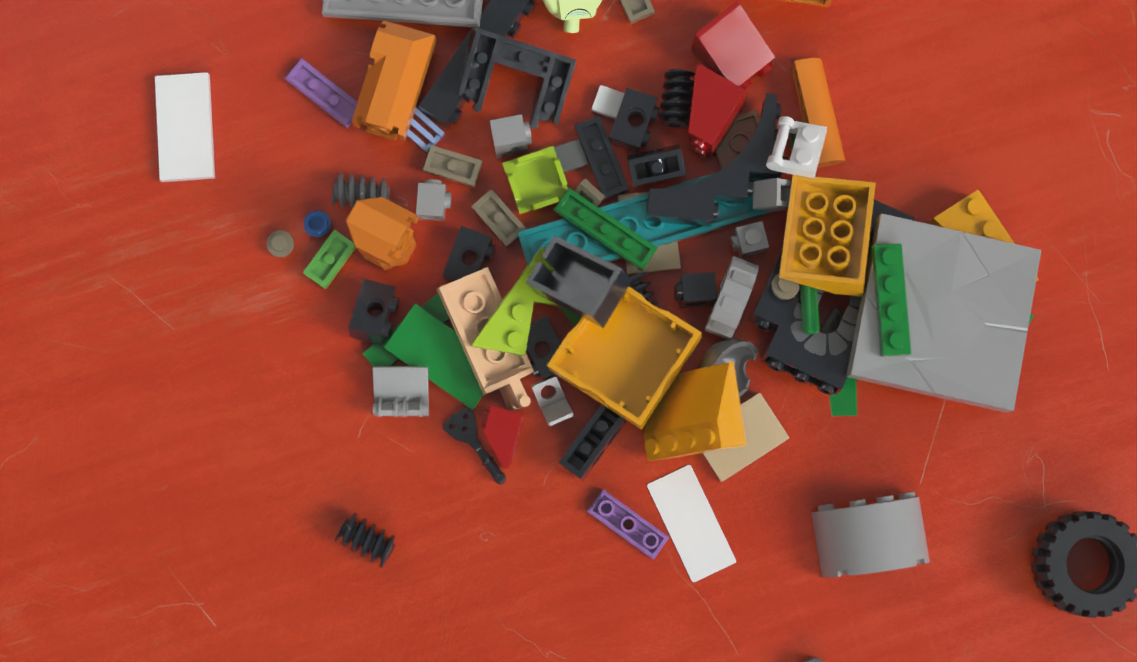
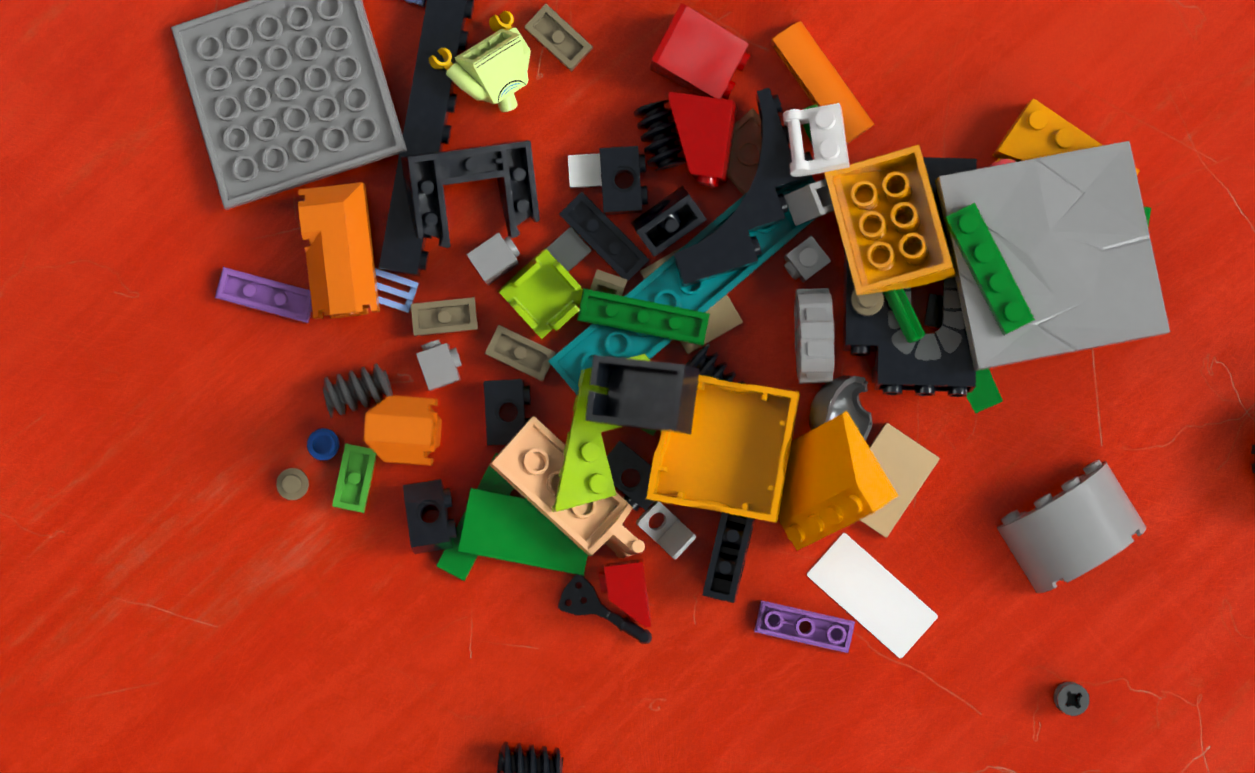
camera: 25 degrees left, 5 degrees up
(184, 127) = (128, 399): white tile -> none
(400, 391) = (497, 590): light grey hinge -> none
(696, 290) = (770, 342): black brick -> none

